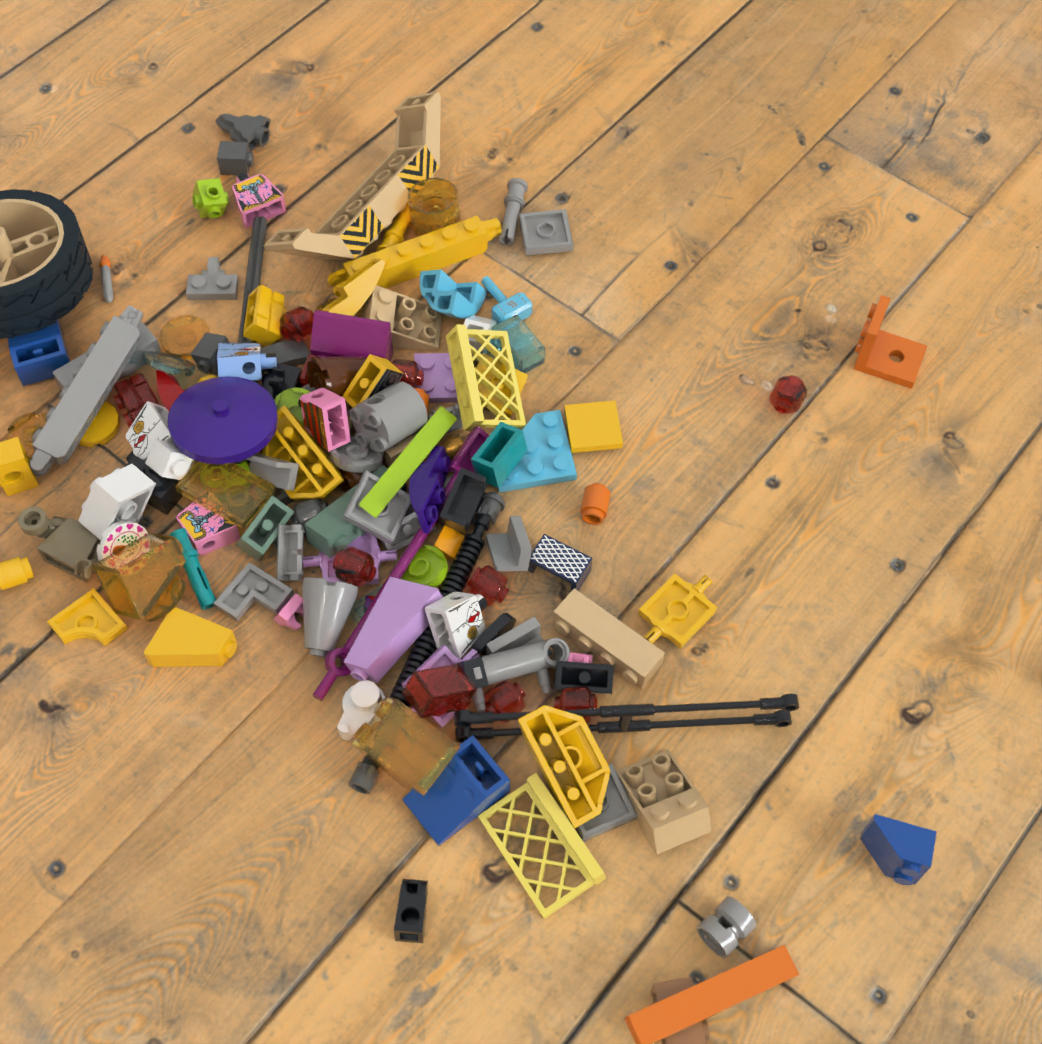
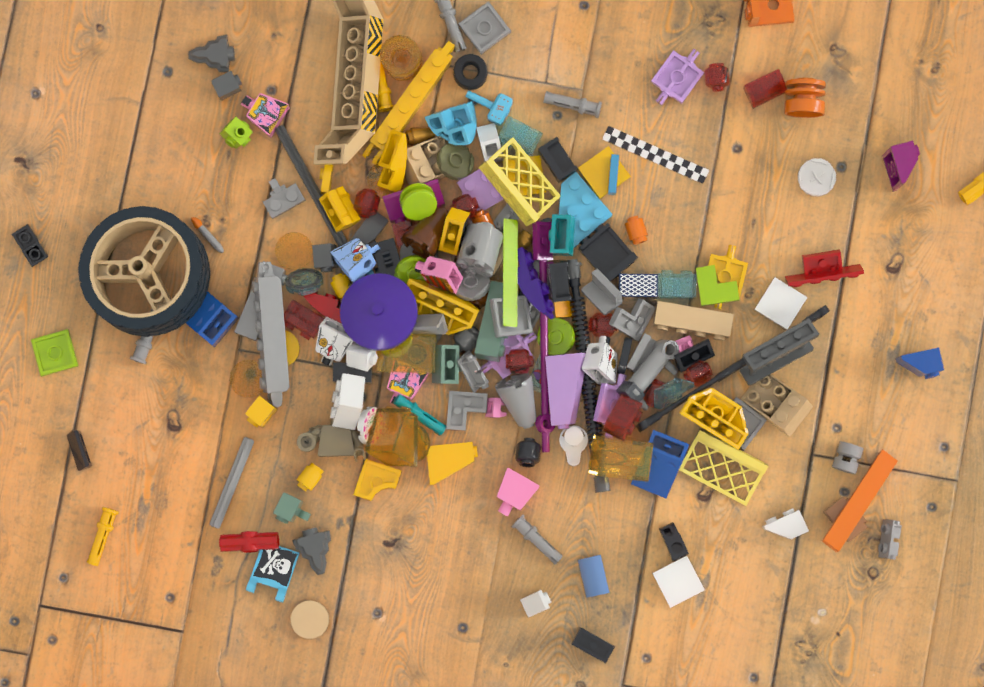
camera: 25 degrees left, 25 degrees up
(170, 883) = (535, 603): none -> white slope
(206, 991) = (593, 645): none -> black panel
(229, 791) = (530, 533): none -> light grey pin
(245, 724) = (515, 491): none -> bright pink torso
(275, 895) = (593, 576): none -> medium blue brick
(281, 276) = (326, 177): none -> yellow plate
(294, 685) = (528, 452): none -> black head
(351, 333) = (418, 201): none -> lime head
(384, 970) = (678, 581): none -> white tile
(405, 289) = (419, 135): none -> pearl gold cone
(425, 329) = (455, 161): none -> olive tile
(502, 250) = (461, 80): none -> black tyre
(516, 699) = (671, 392): none -> clear light blue panel
(527, 601) = (634, 323): none -> light grey plate
(545, 386) = (557, 160): none -> black panel
(545, 508) = (607, 252): none -> black panel
(587, 978) = (788, 526): none -> white slope
(602, 425) = (613, 174): none -> dark azure tile
(608, 350) = (582, 106): none -> light grey pin
(609, 587) = (676, 285): none -> clear light blue brick
(651, 614) = (711, 291): none -> lime tile
(668, 443) = (655, 154): none -> sticker
(700, 706) = (778, 352): none -> dark grey fence
(735, 676) = (780, 303): none -> white tile
(739, 373) = (677, 77): none -> lavender plate
(815, 659) = (823, 267): none -> red bracket
(842, 432) = (765, 88): none -> clear red brick
(859, 559) = (816, 177): none -> white tile
(888, 457) = (805, 98): none -> orange wheel
(984, 578) = (900, 162): none -> magenta slope

